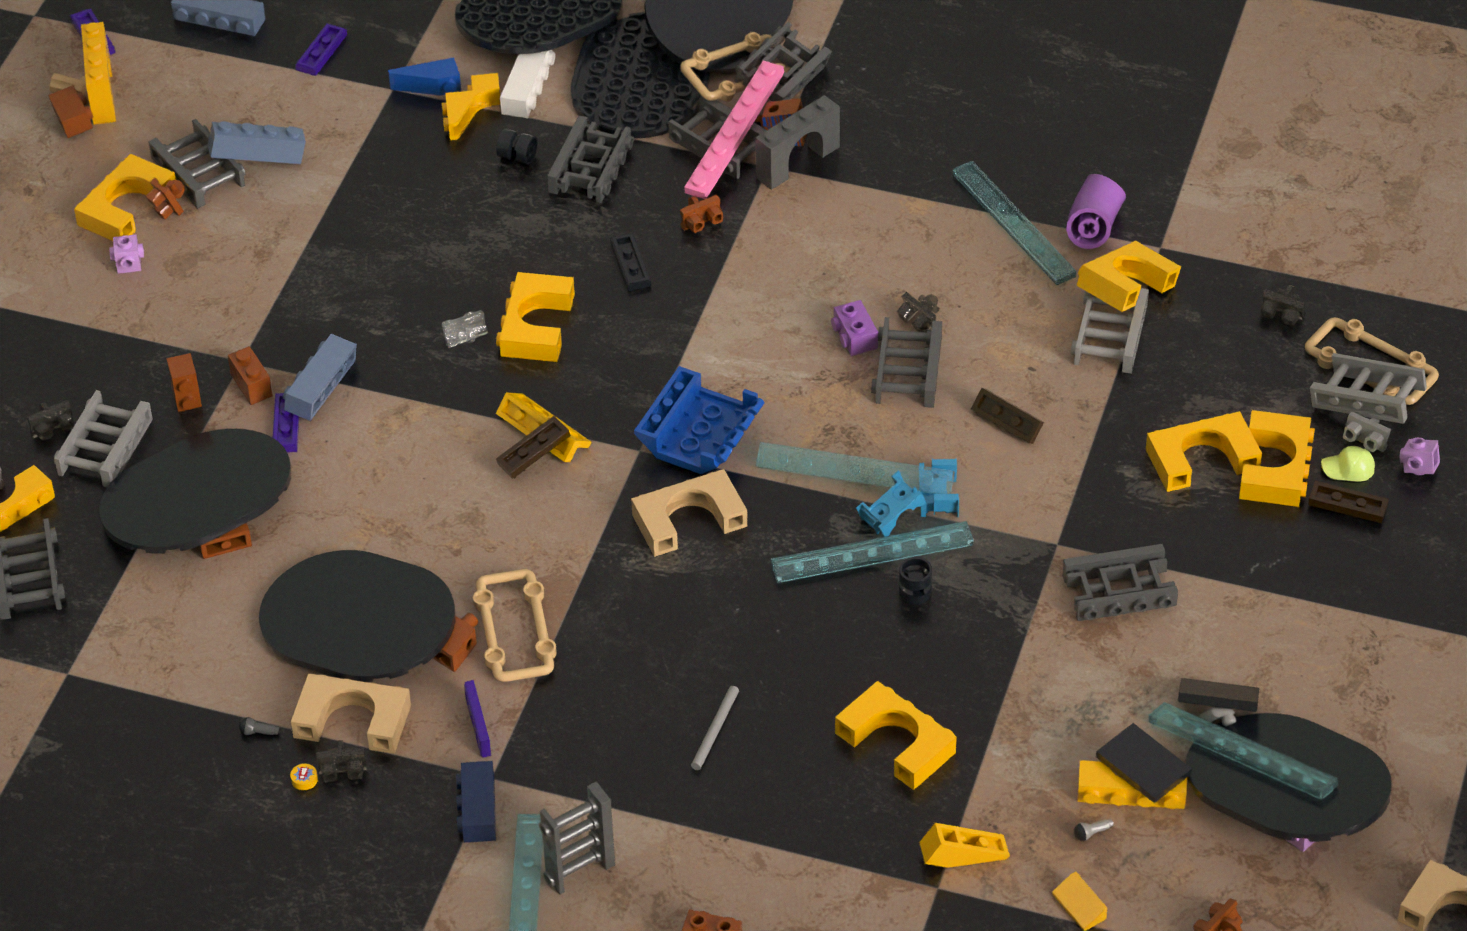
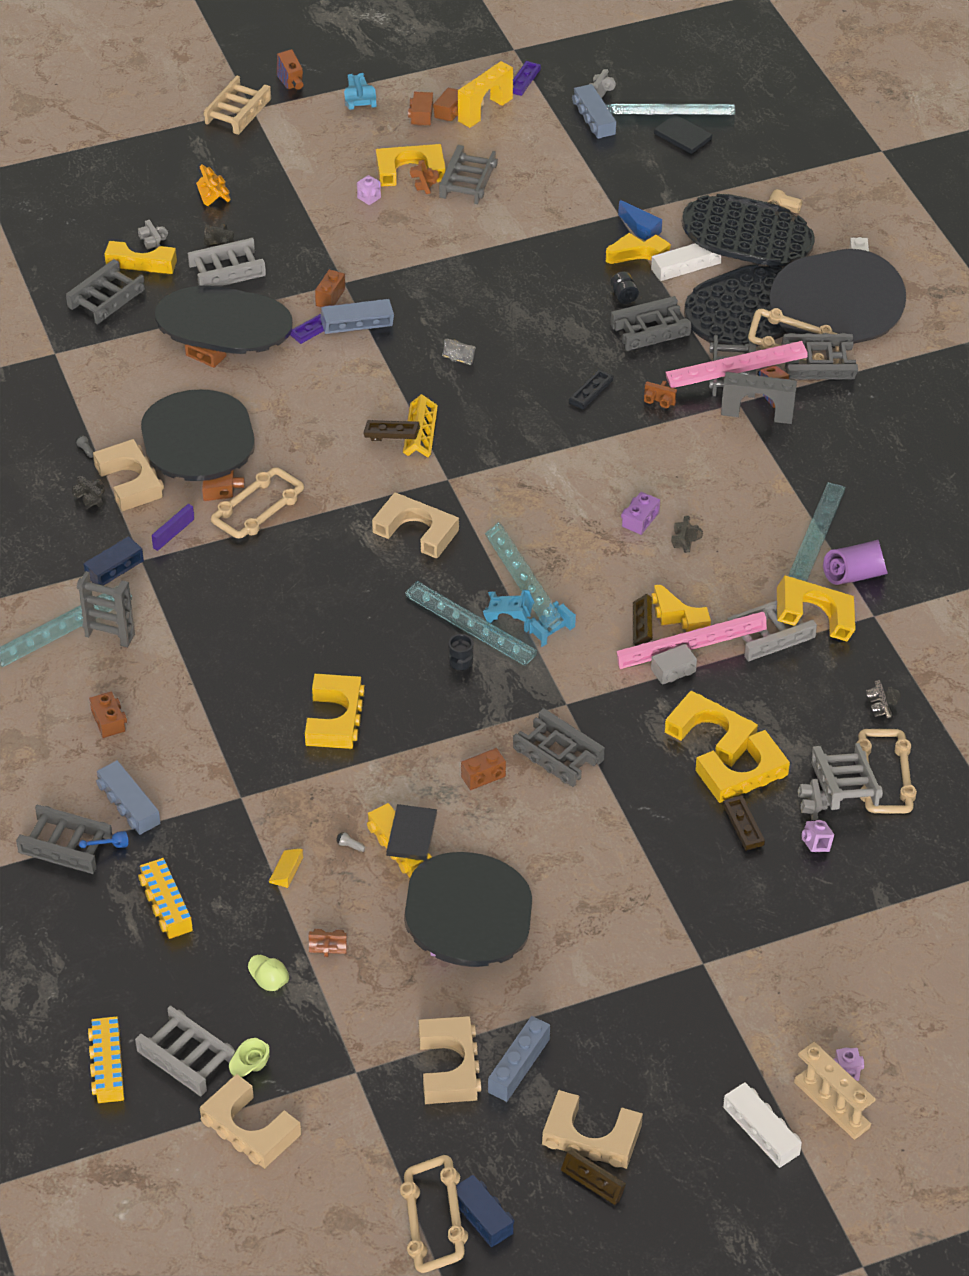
camera: 50 degrees right, 0 degrees up
(49, 136) = (421, 108): none -> dark orange brick
(184, 382) = (293, 266): dark orange brick -> none
(256, 142) = (501, 183): sand blue brick -> none
(304, 776) = (67, 483): yellow tile -> none
(321, 49) = (615, 168): dark purple tile -> none
(528, 294) = (513, 360): yellow arch -> none
(695, 424) = (484, 483): blue slope -> none
(715, 727) = (266, 631): light grey bar -> none
(927, 372) = (639, 566): dark grey fence -> none
(961, 846) = (276, 788): yellow slope -> none
(1016, 384) = (672, 611): none -> yellow arch
(1073, 400) = (693, 639): none -> bright pink plate
(1090, 427) = (673, 664): none -> light grey brick
(1096, 658) = (483, 769): none -> dark orange brick
(1215, 713) = (495, 853): light grey arm -> none
(1218, 694) = (509, 842): black tile -> none
(1243, 750) = (468, 876): clear light blue tile -> none
(1350, 465) = (779, 808): yellowish green piece -> none

